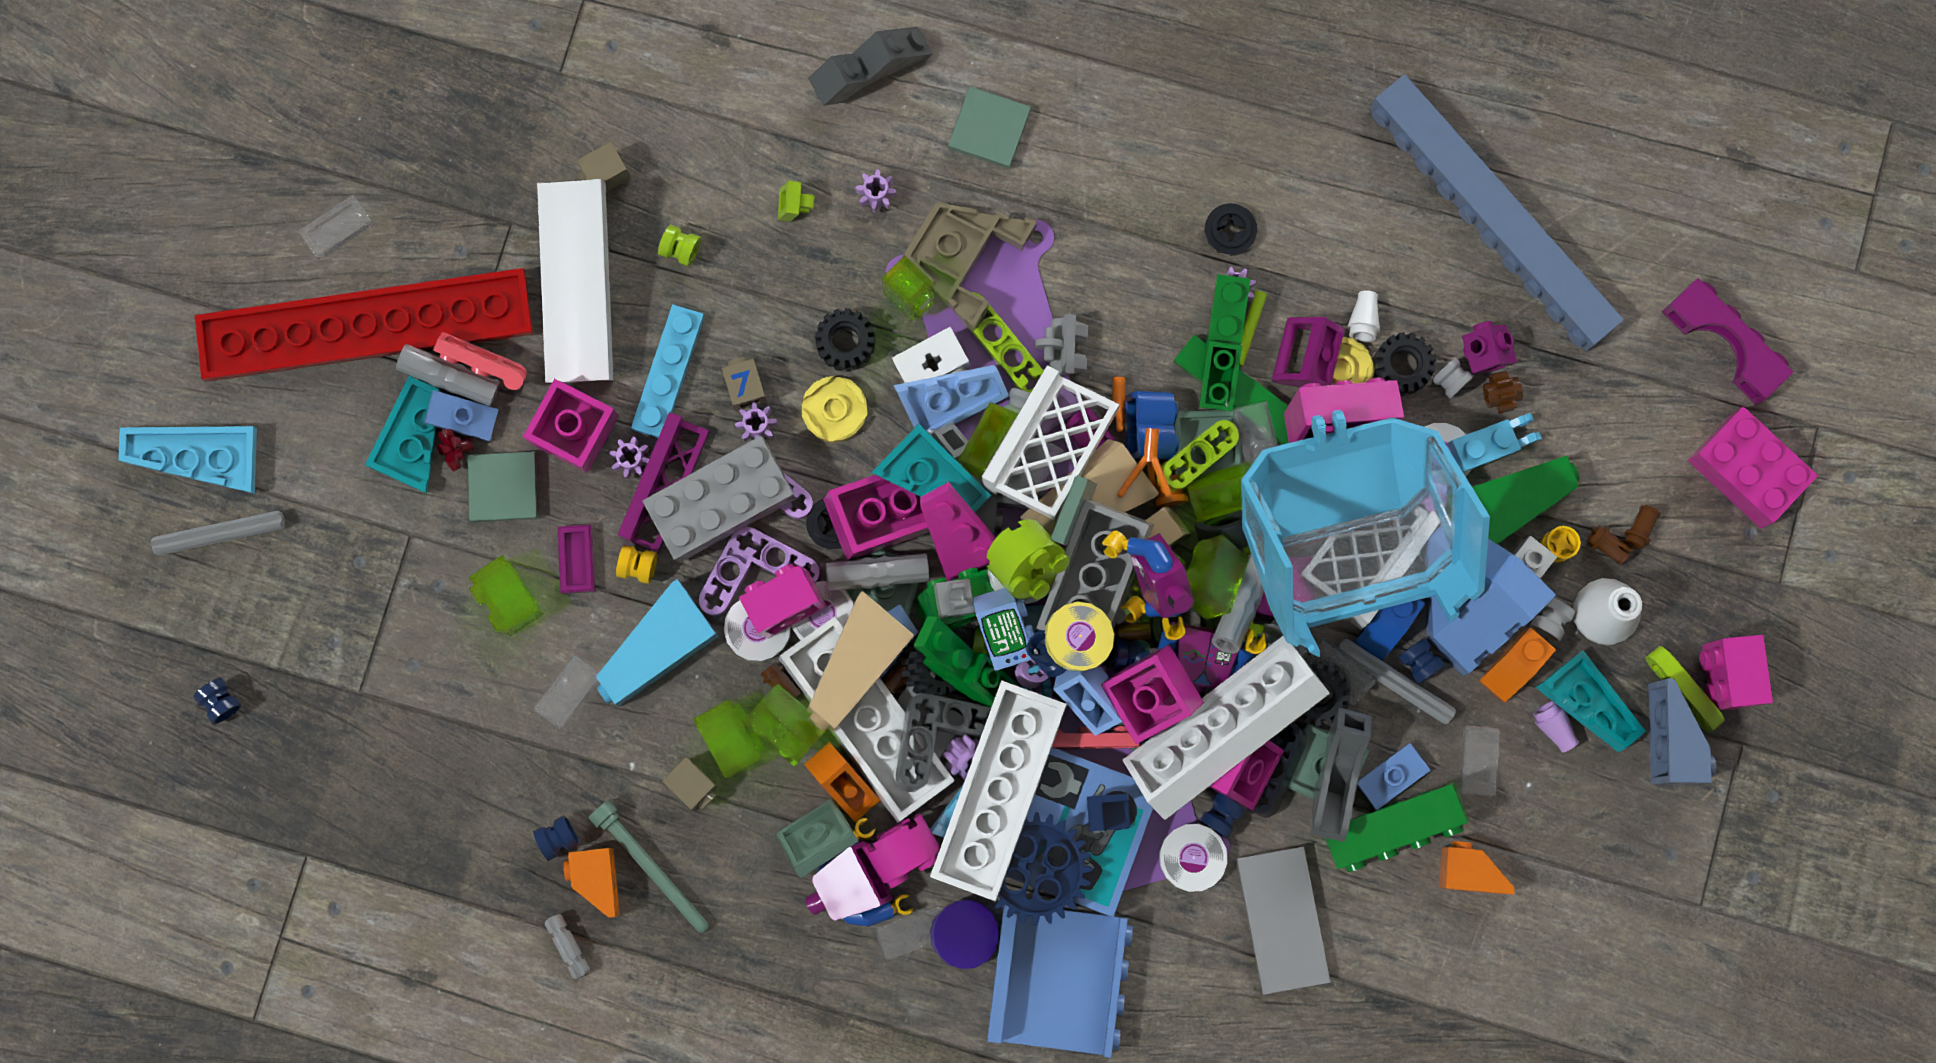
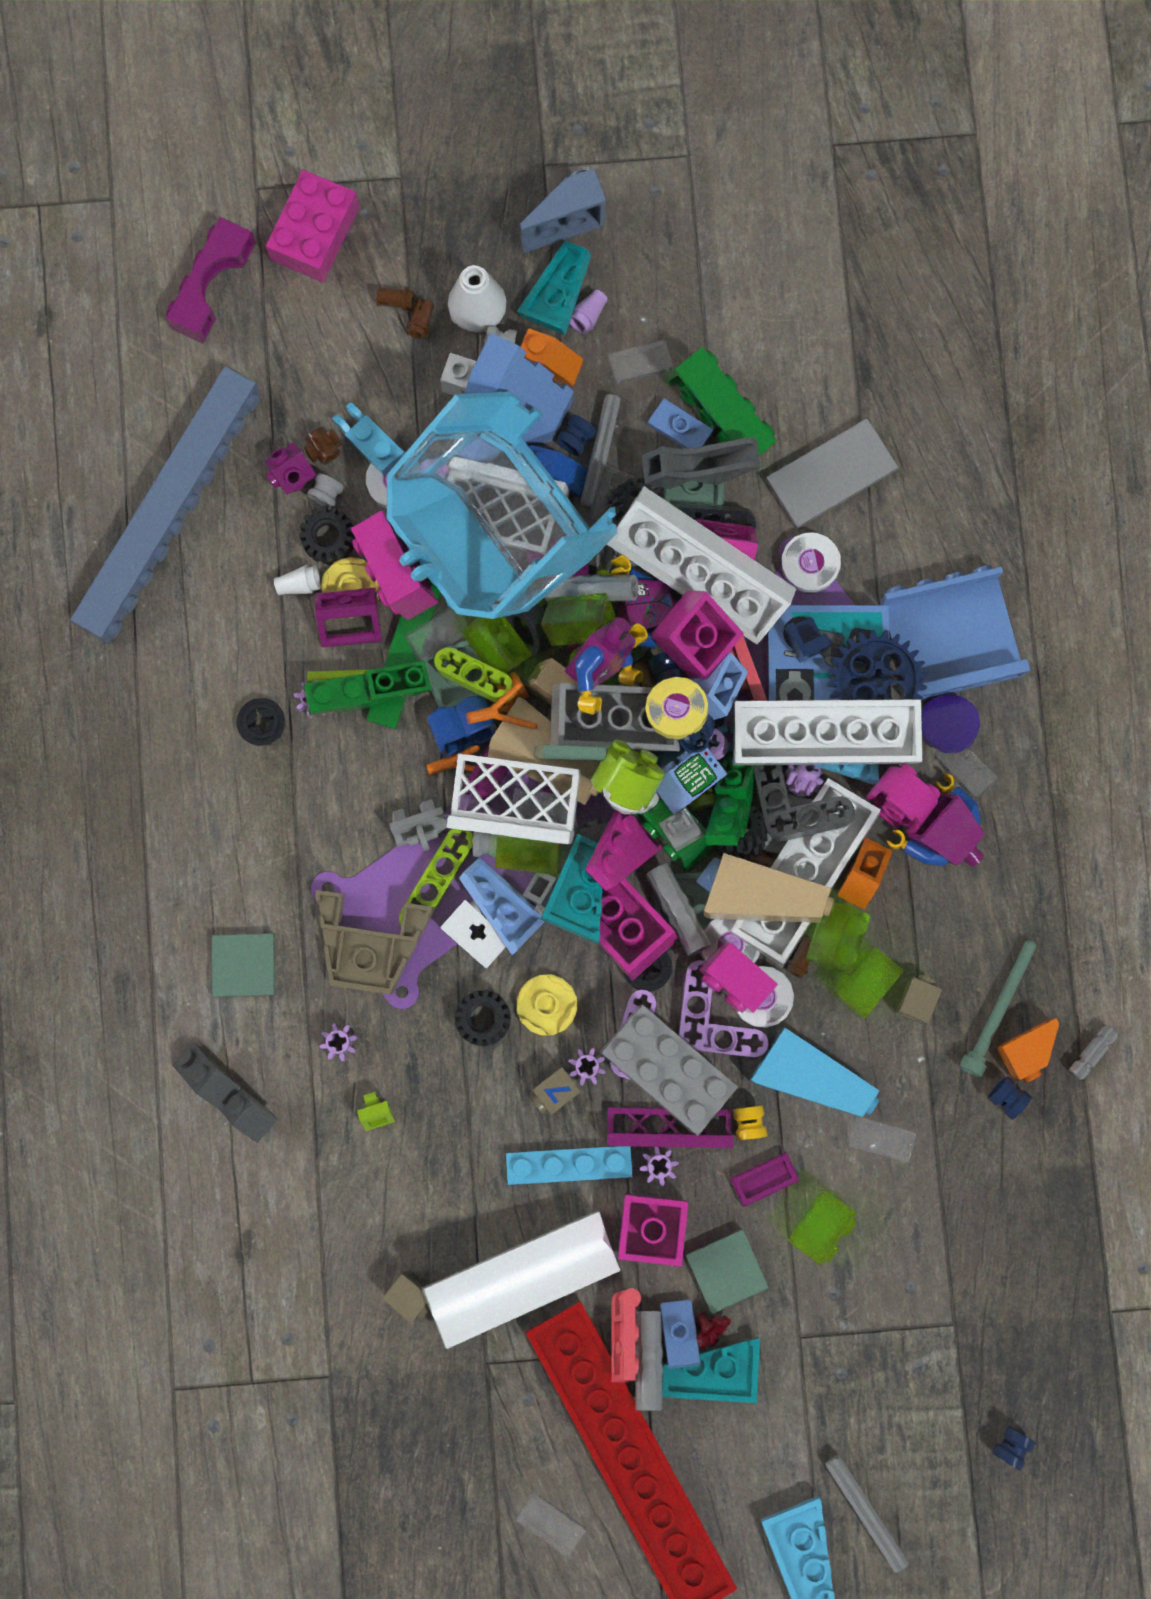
camera: 110 degrees left, 0 degrees up
(679, 245) = (452, 1191): lime wheel -> none
(816, 837) = (922, 874): sand green tile -> none
(908, 288) = (419, 975): clear neon green brick -> none
(1228, 809) = (776, 550): dark blue wheel -> none
(1471, 870) = (734, 338): orange slope -> none
(1525, 495) = (402, 396): green slope -> none
(1564, 539) = (434, 351): yellow wheel -> none
(1702, 708) = (510, 232): lime beam -> none
(1736, 672) = (492, 182): dark pink brick -> none

